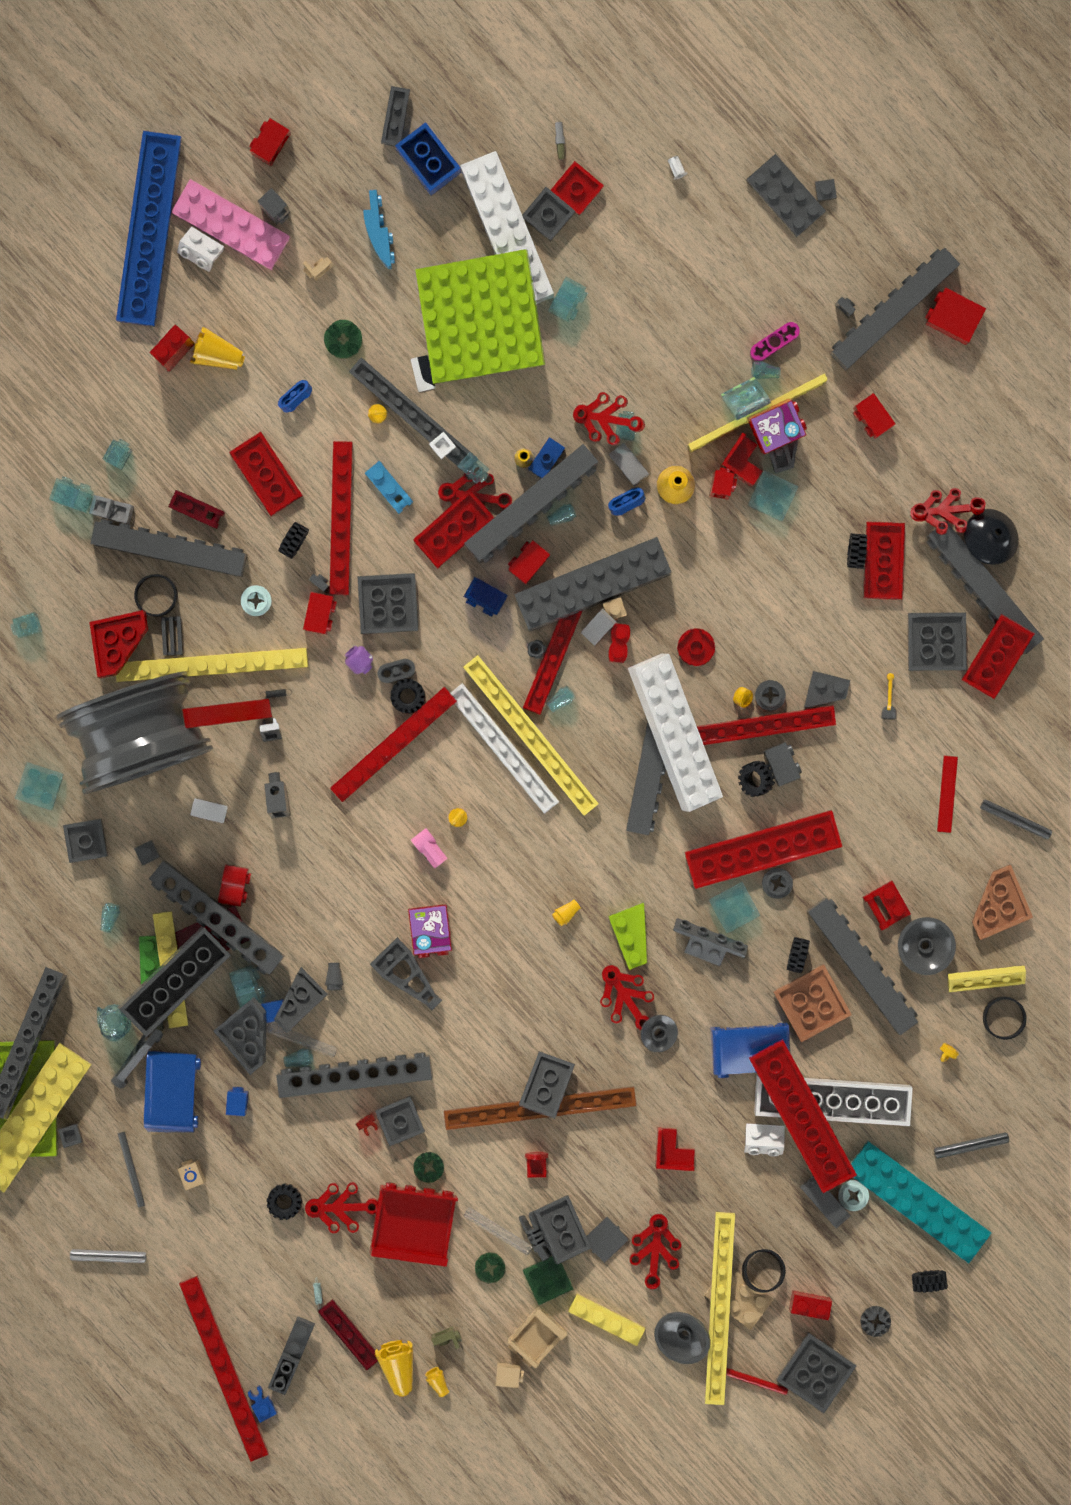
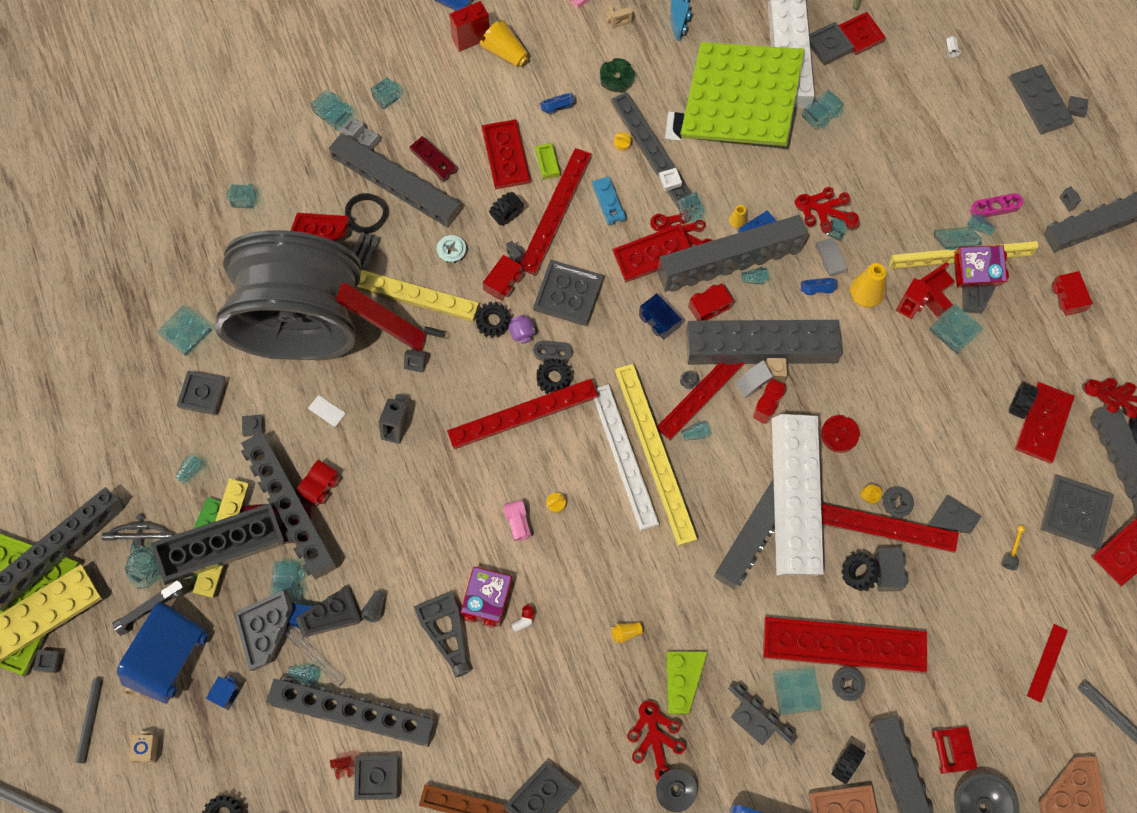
camera: 15 degrees right, 20 degrees down
(89, 986) = (112, 536): none -> dark grey piece
(311, 465) = (547, 161): none -> lime tile
(338, 660) = (495, 329): none -> black tyre
(473, 935) = (526, 619): none -> arm

